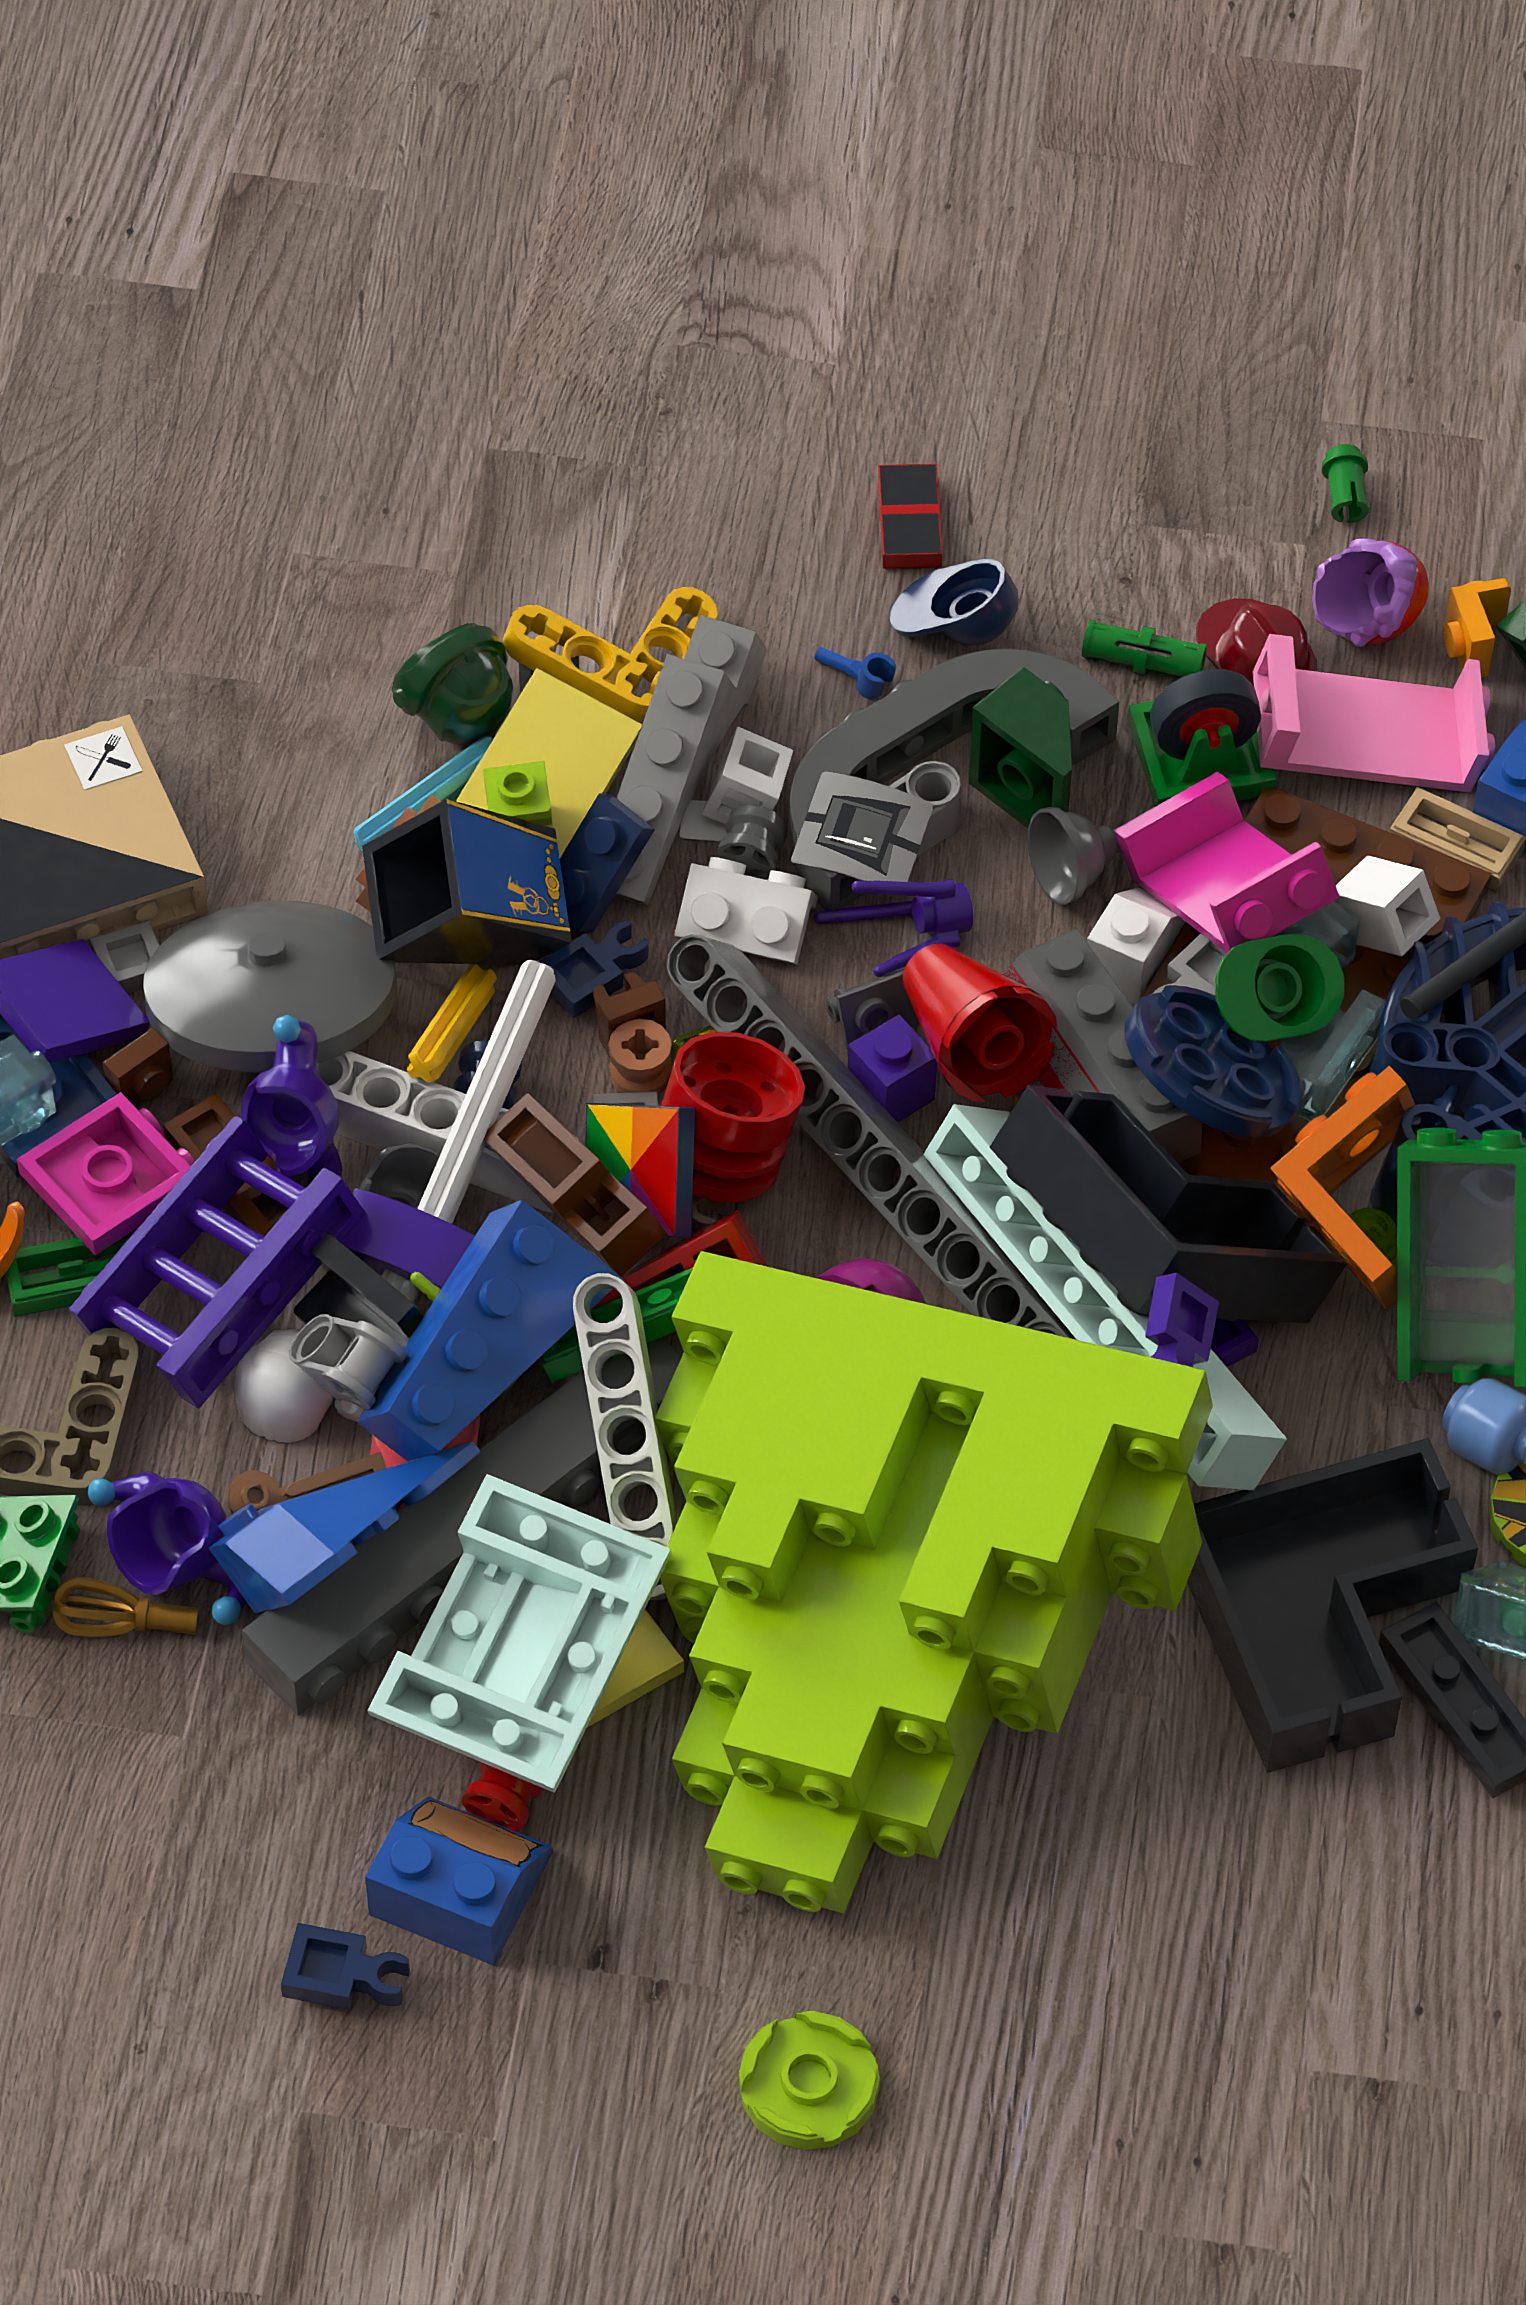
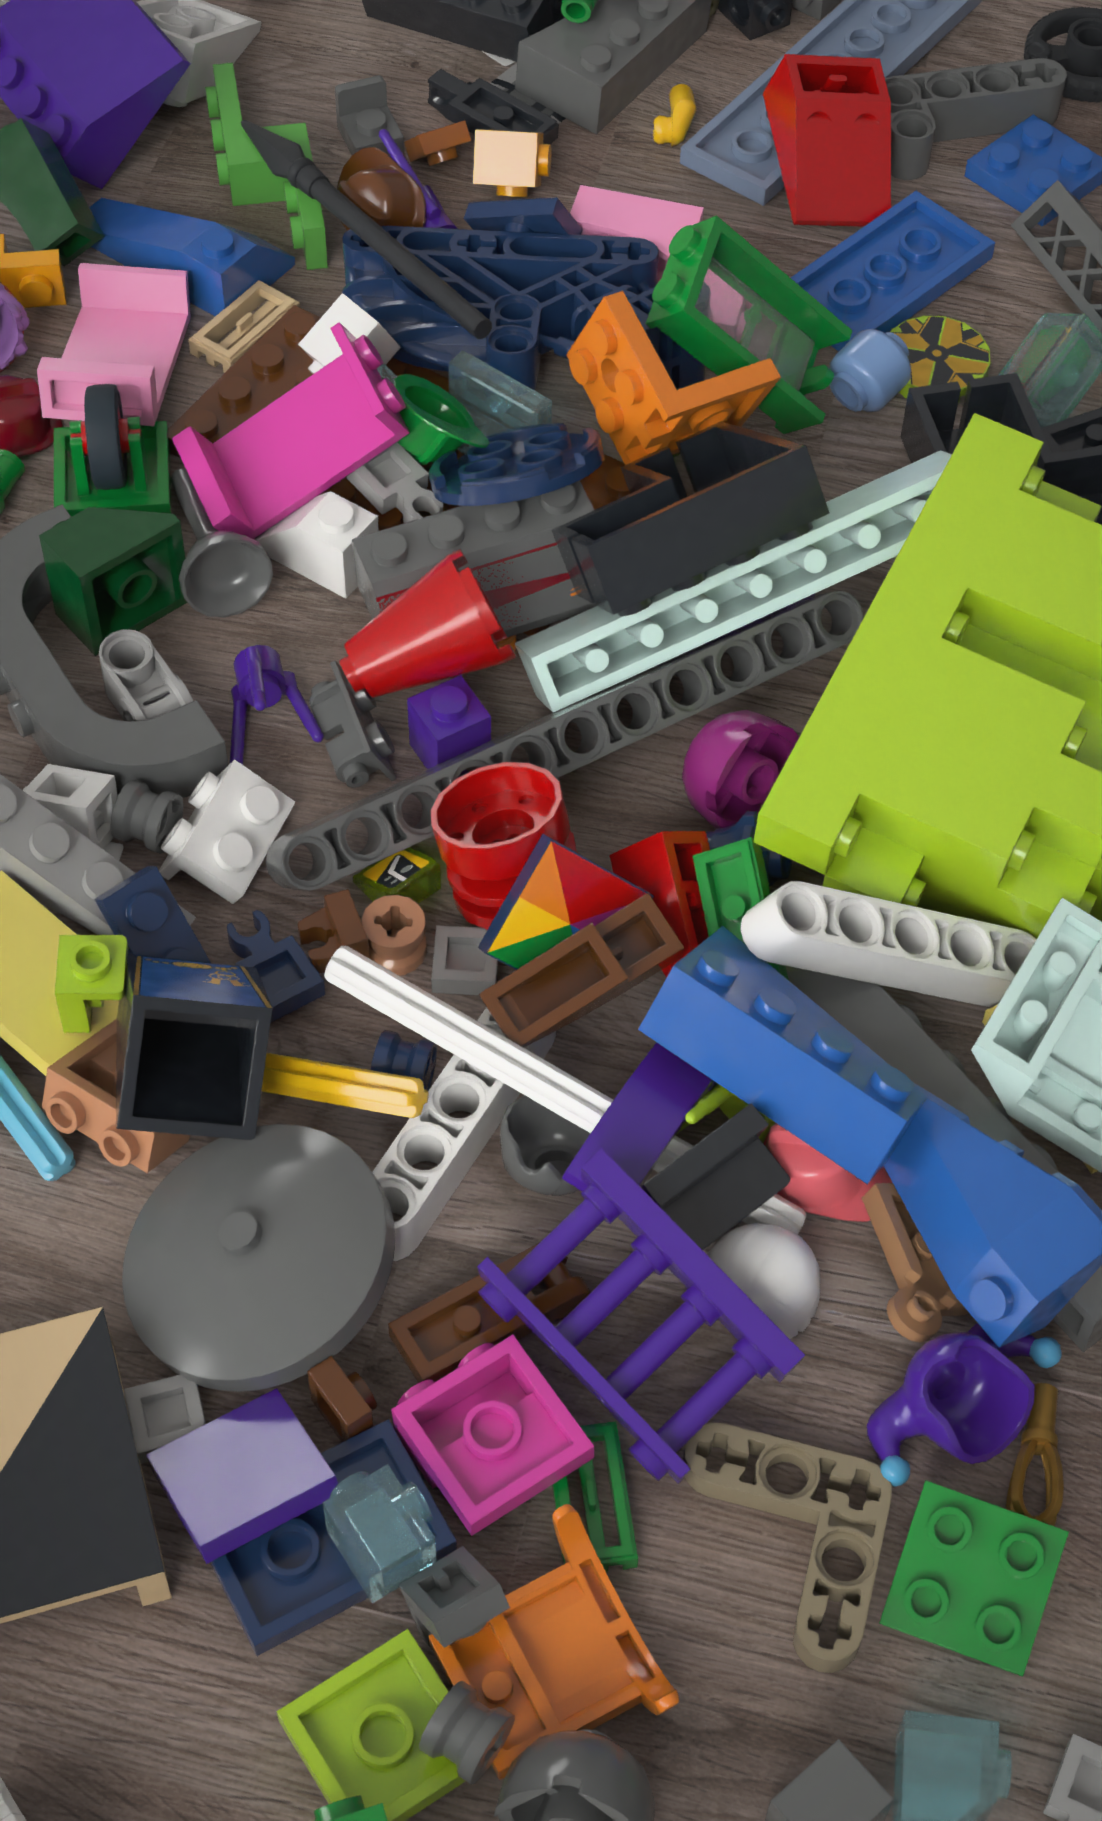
camera: 85 degrees left, 0 degrees up
(292, 1106) = (456, 1220): dark purple piece -> none
(346, 1357) = (812, 1169): light grey piece -> none
(862, 829) = (172, 711): sticker -> none
(1181, 1321) = (851, 480): dark purple plate -> none

